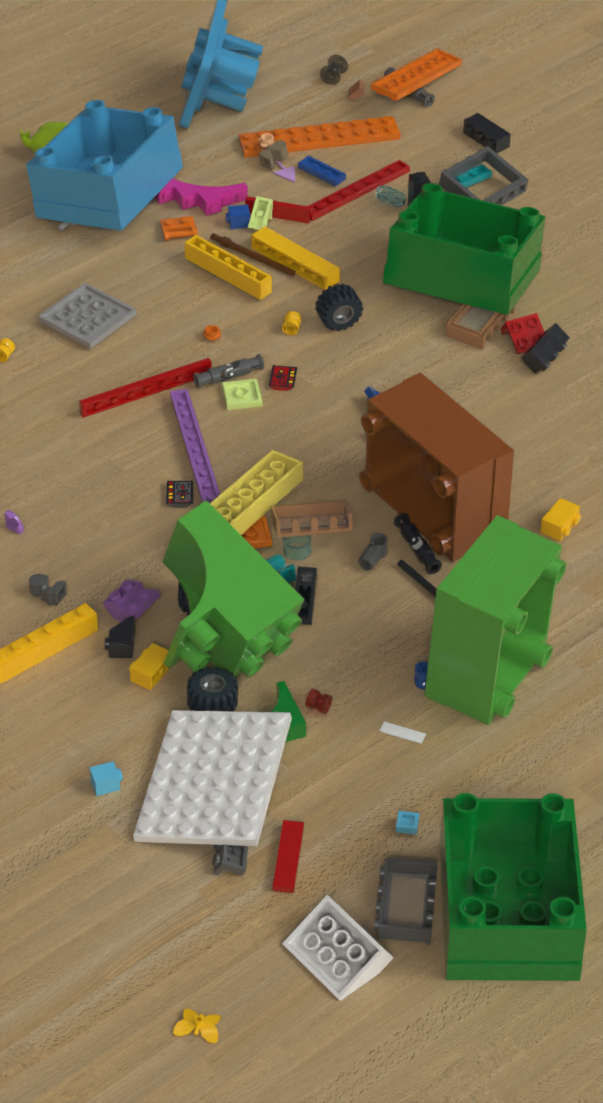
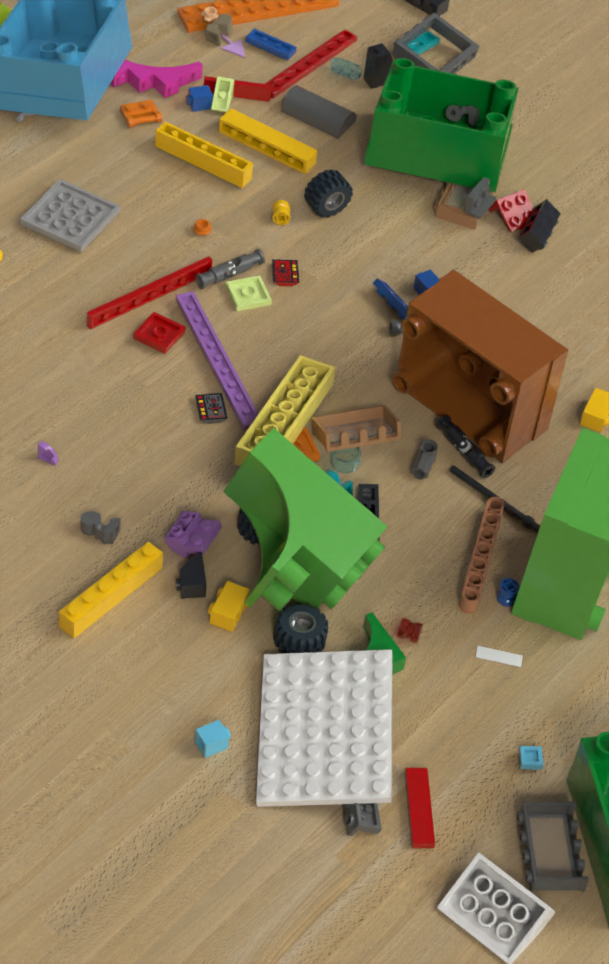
camera: 15 degrees left, 5 degrees up
(146, 424) = (159, 332): none -> red plate
(226, 242) = (194, 127): reddish brown bar -> none
(351, 233) = (318, 111): none -> dark grey brick
(406, 642) = (481, 555): none -> nougat beam
(486, 239) = (456, 113): none -> dark grey leg
(486, 319) = (479, 199): none -> dark grey bracket

